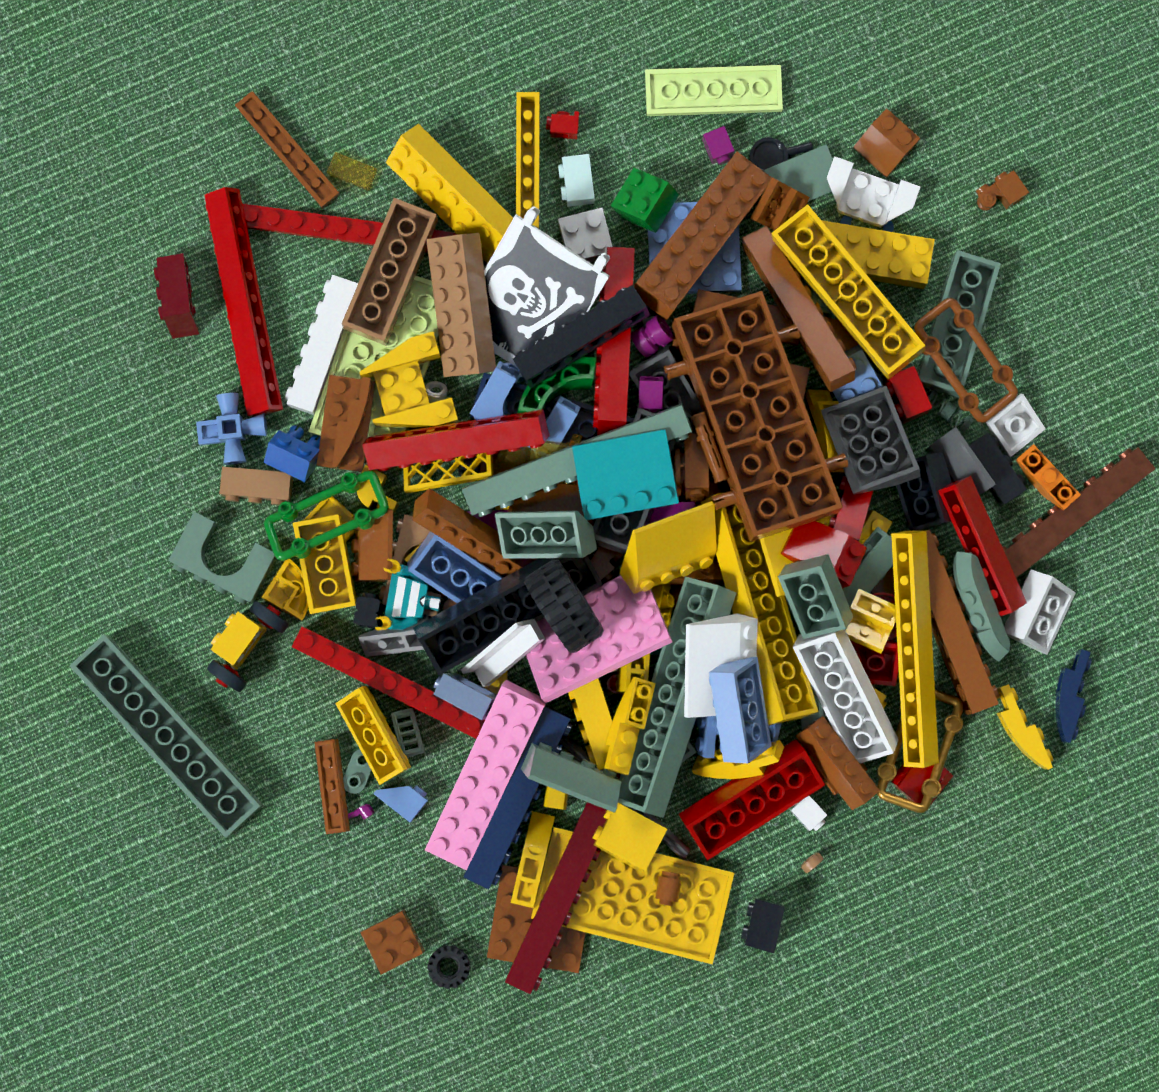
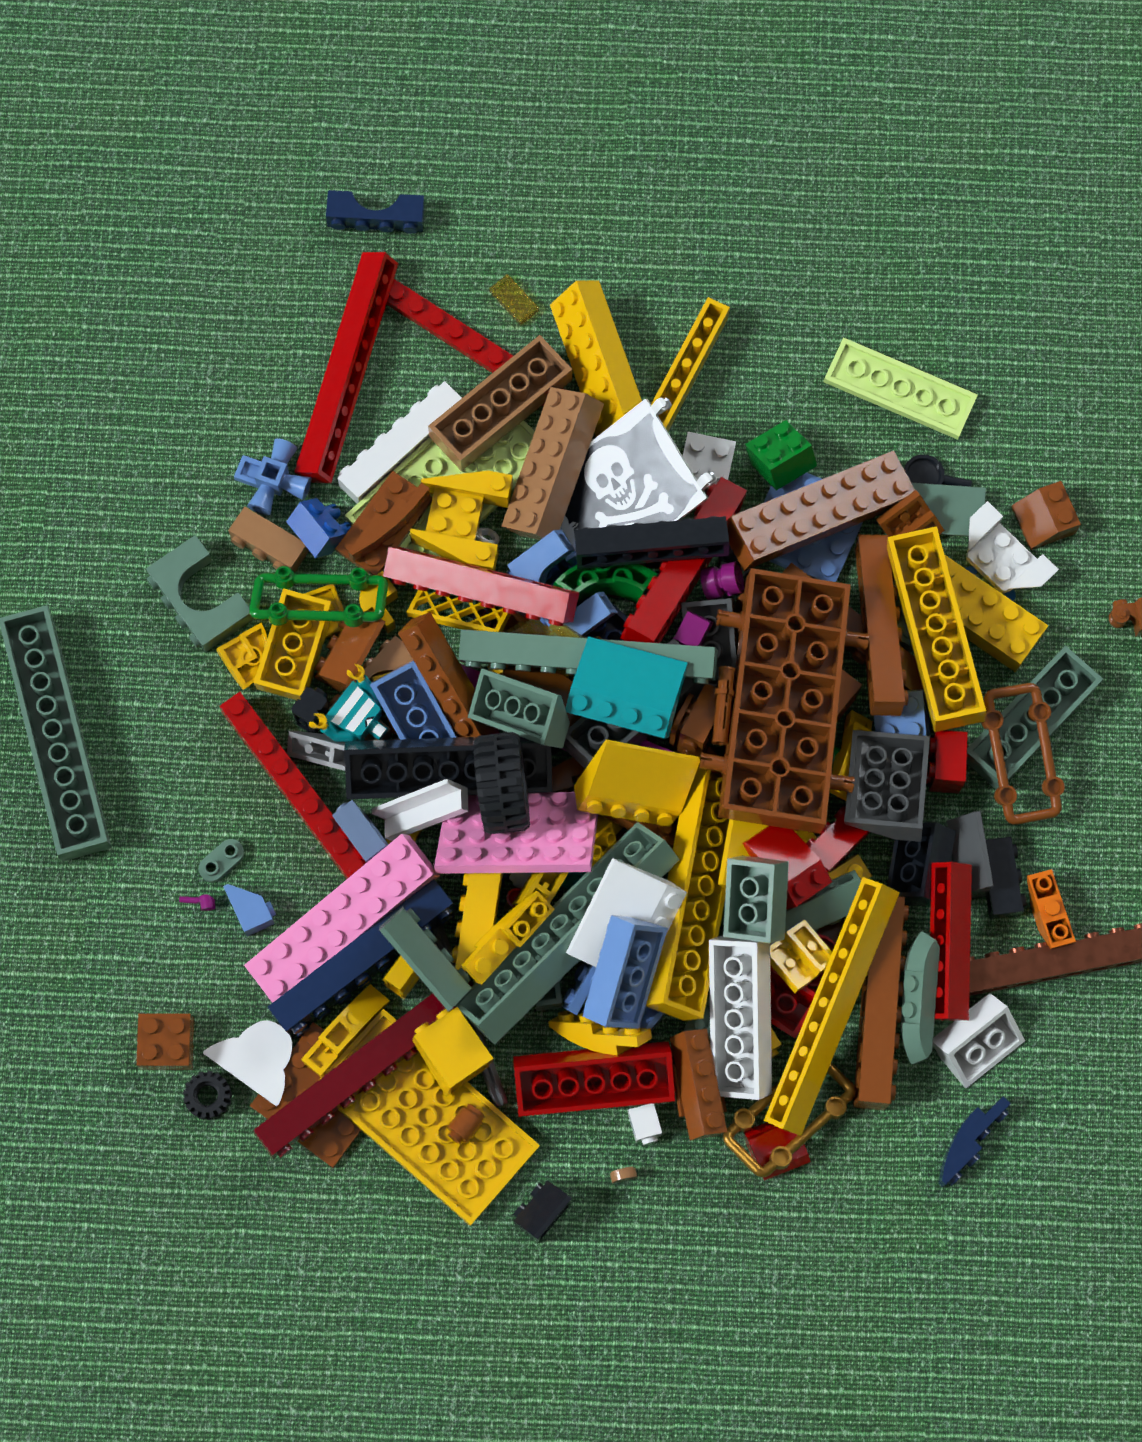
camera: 25 degrees right, 10 degrees down
(175, 295) = (285, 331): dark red wedge -> none
(222, 142) = (403, 215): none -> dark blue arch
(239, 640) = (174, 676): brick -> none
(287, 149) = (463, 251): dark orange plate -> none
(332, 786) = (187, 862): dark orange tile -> none
(373, 734) = (253, 829): yellow slope -> none
(404, 713) = (284, 825): sand green slope -> none
(472, 917) = (256, 1058): none -> white sticker
(563, 125) = (738, 351): red brick -> none
(577, 180) = (726, 408): light aqua brick -> none
(718, 146) = (878, 439): magenta brick -> none
(947, 411) = (981, 799): sand green piece -> none
(1015, 425) = (1043, 845): white slope -> none
(1025, 737) = (904, 1160): yellow slope -> none

